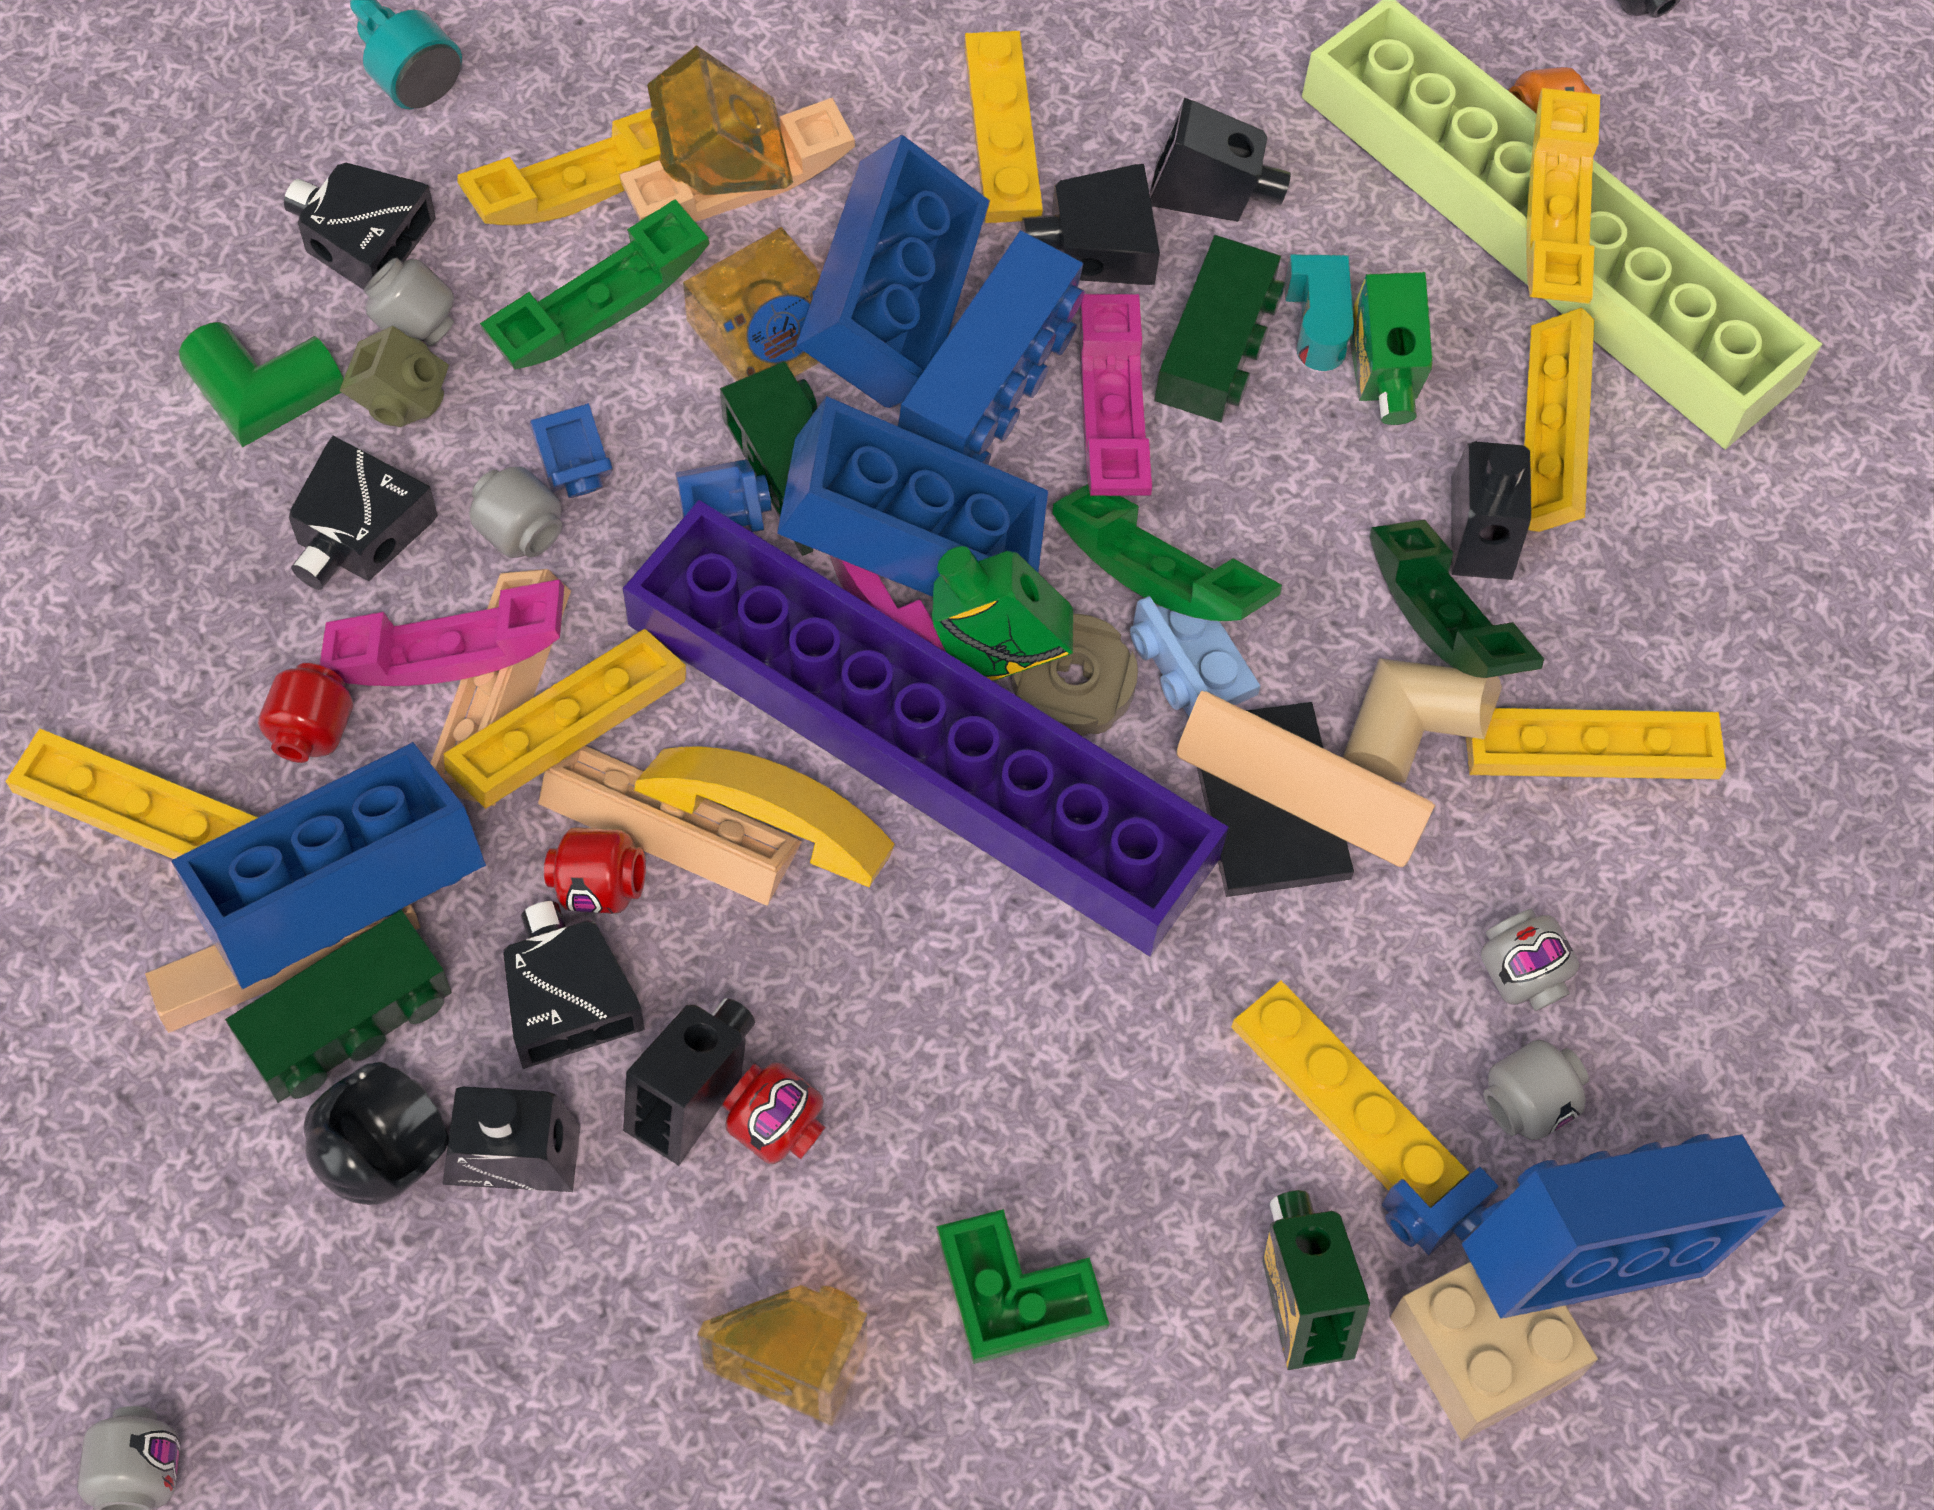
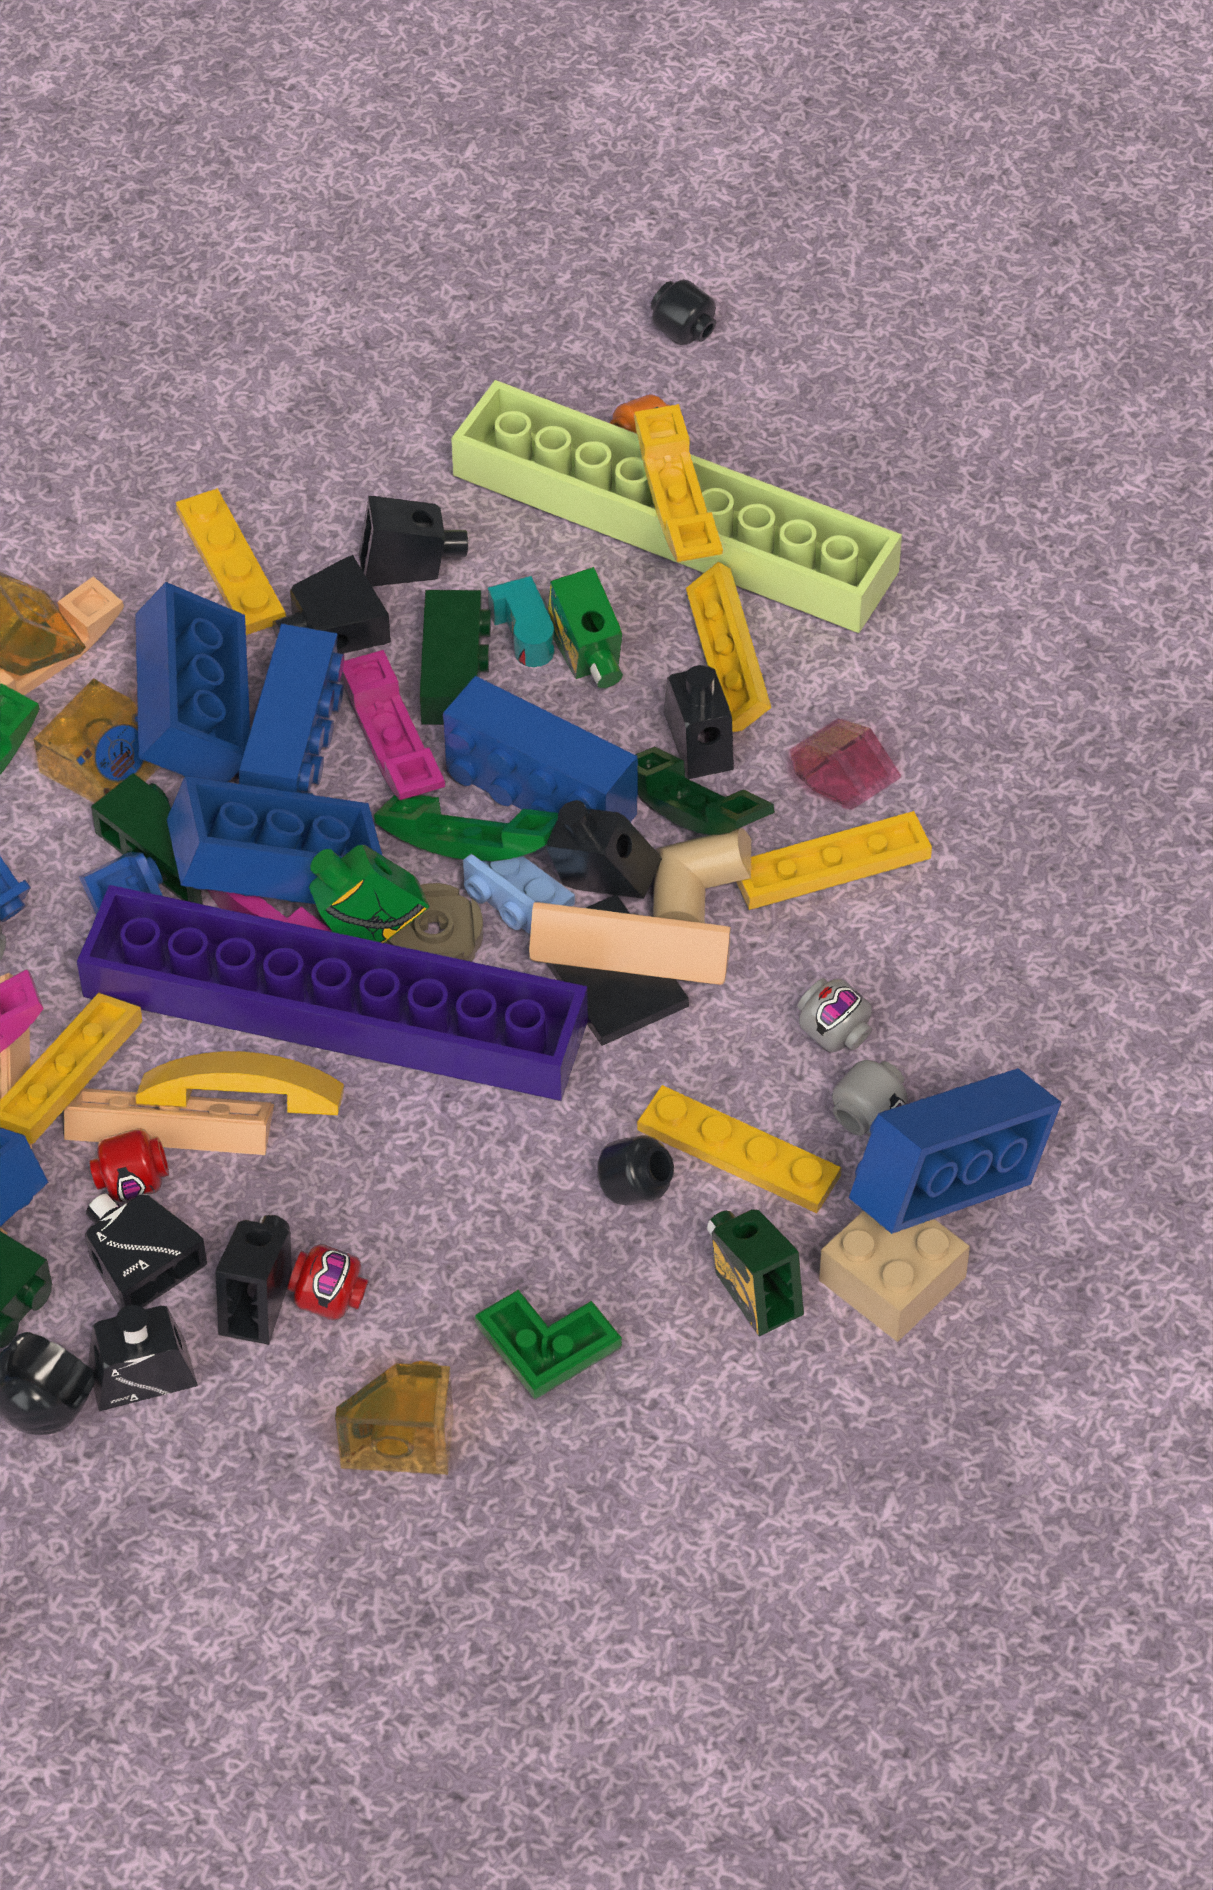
camera: 15 degrees left, 10 degrees down
(1206, 1091) = (635, 1170): none -> black head
(1275, 505) = (533, 755): none -> blue brick
(1293, 635) = (601, 852): none -> black torso
(1454, 1214) = (825, 1207): blue bracket -> none
(1650, 616) = (844, 763): none -> clear pink slope

